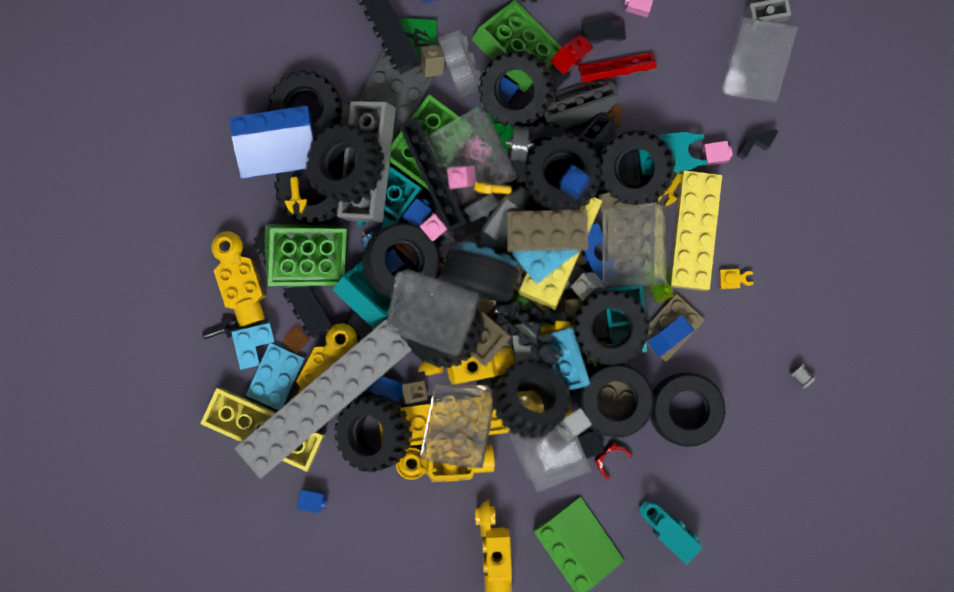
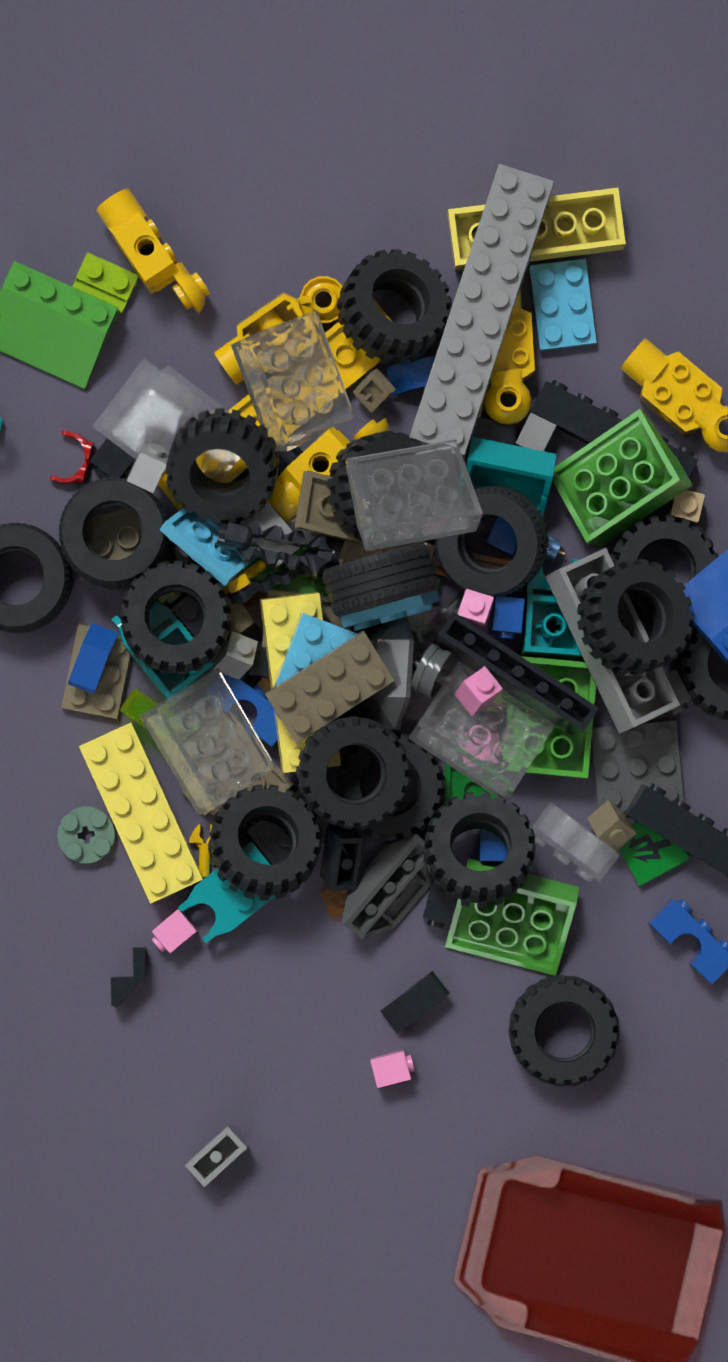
camera: 150 degrees right, 0 degrees up
(221, 329) = (668, 322): black bar -> none
(247, 339) = (625, 330): medium azure brick -> none
(276, 215) = (687, 506): none -> tan brick
(295, 196) = (675, 541): yellow bar -> none
(296, 340) = (565, 366): clear orange tile -> none
(312, 500) = (420, 178): blue brick -> none
(337, 310) = (535, 433): none -> light grey brick
(488, 188) = (439, 694): yellow bar -> none
(519, 143) = (432, 779): dark grey wheel -> none
(531, 552) = (106, 281): none -> lime plate
(572, 54) = (436, 943): red brick -> none
(574, 182) = (330, 762): blue brick -> none
(617, 67) = (369, 966): red plate -> none
(731, 279) = (57, 782): yellow plate -> none
(744, 237) = (73, 824): none -> sand green plate
(758, 59) = (192, 1084): clear slope -> none

